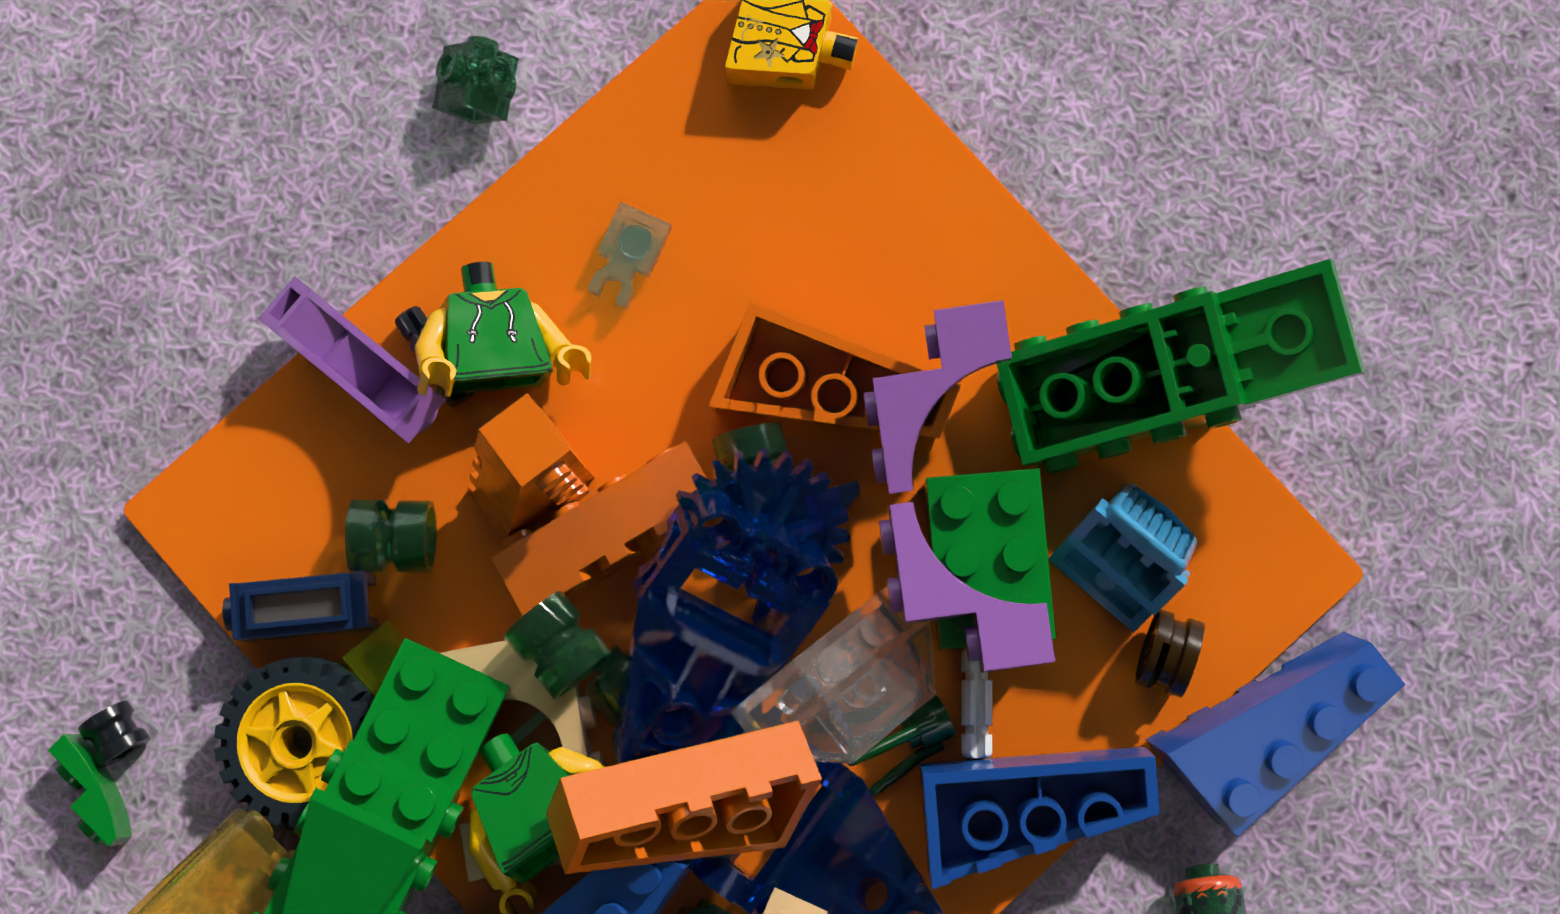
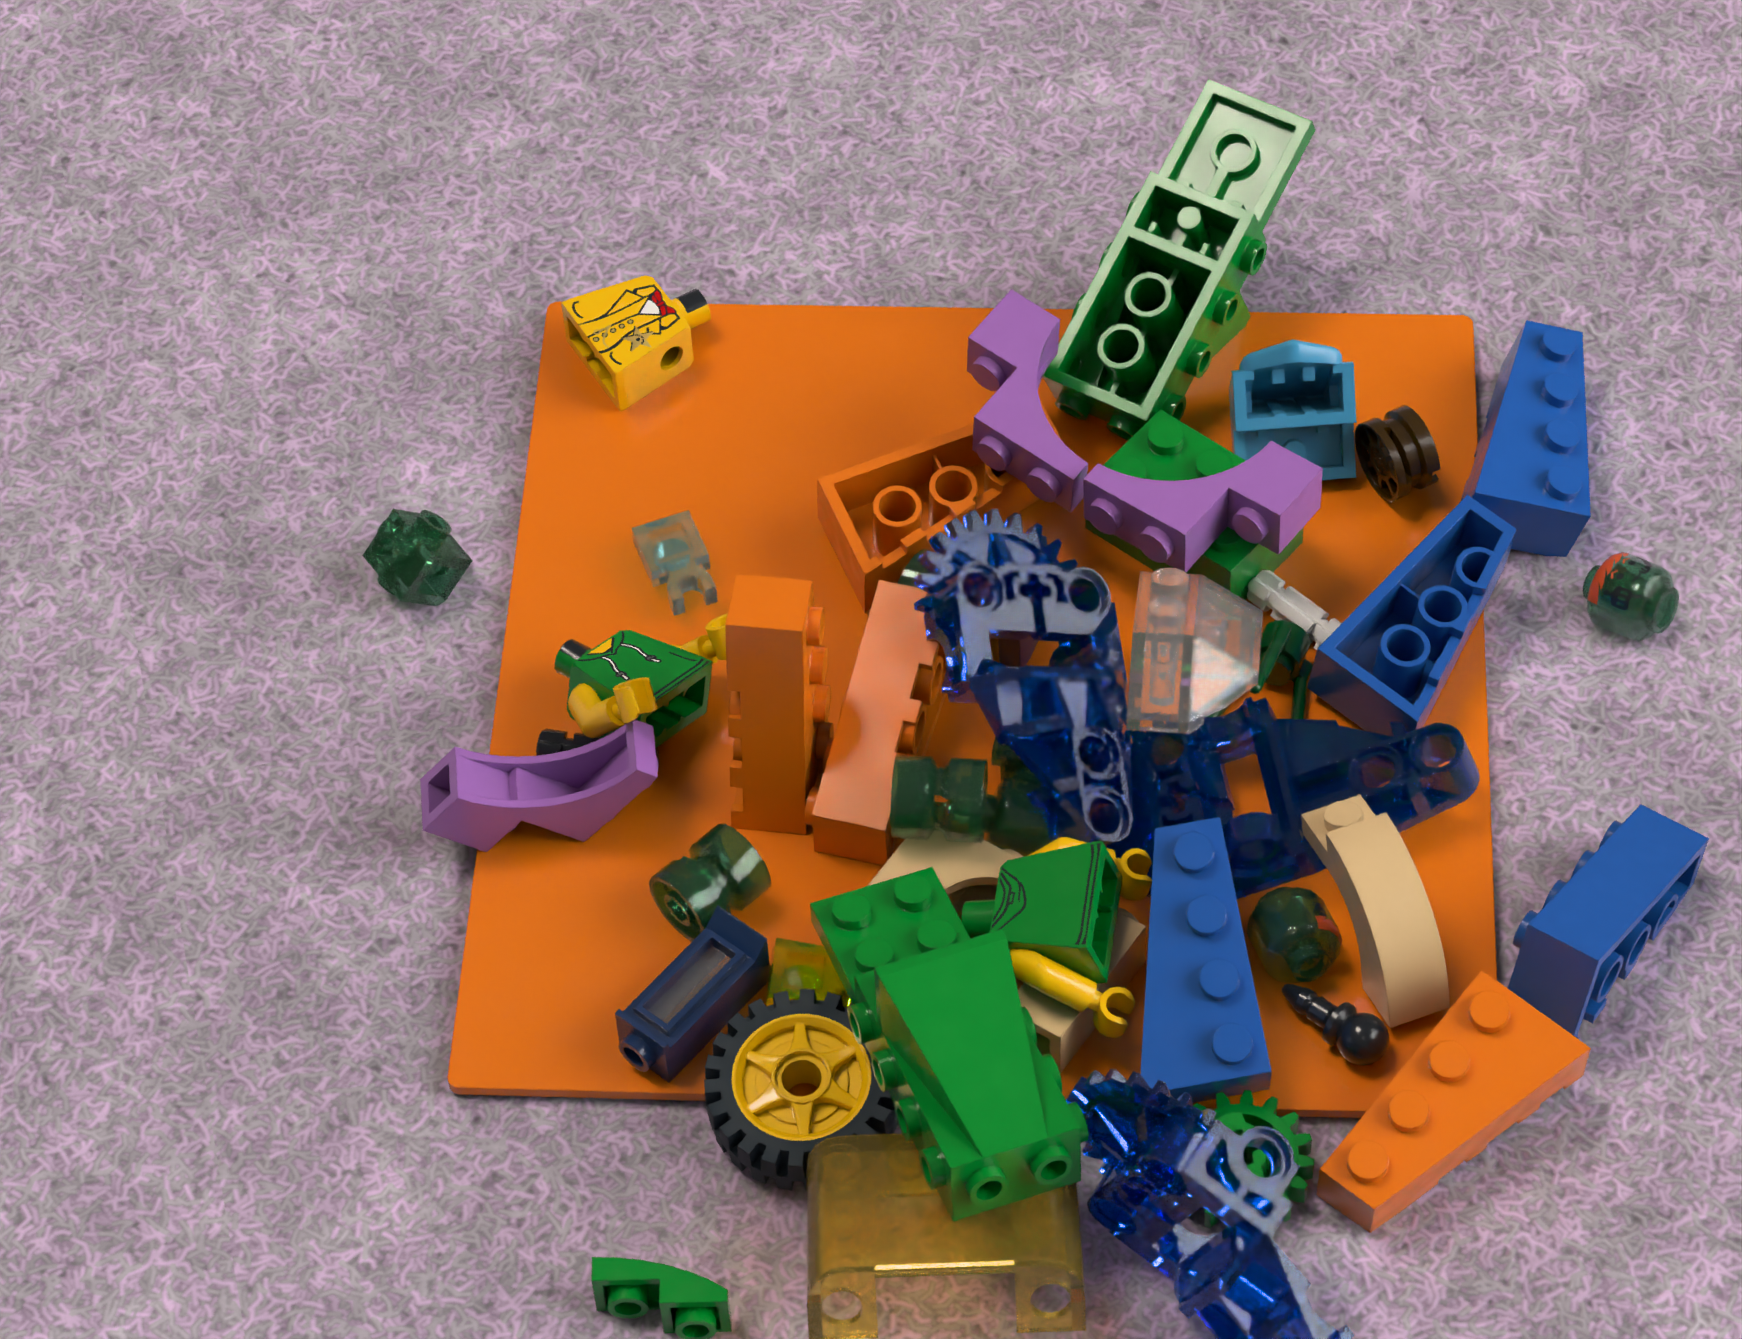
camera: 50 degrees left, 30 degrees down
(113, 733) = (632, 1235): black wheel -> none
(686, 802) = (1171, 761): orange wedge -> none

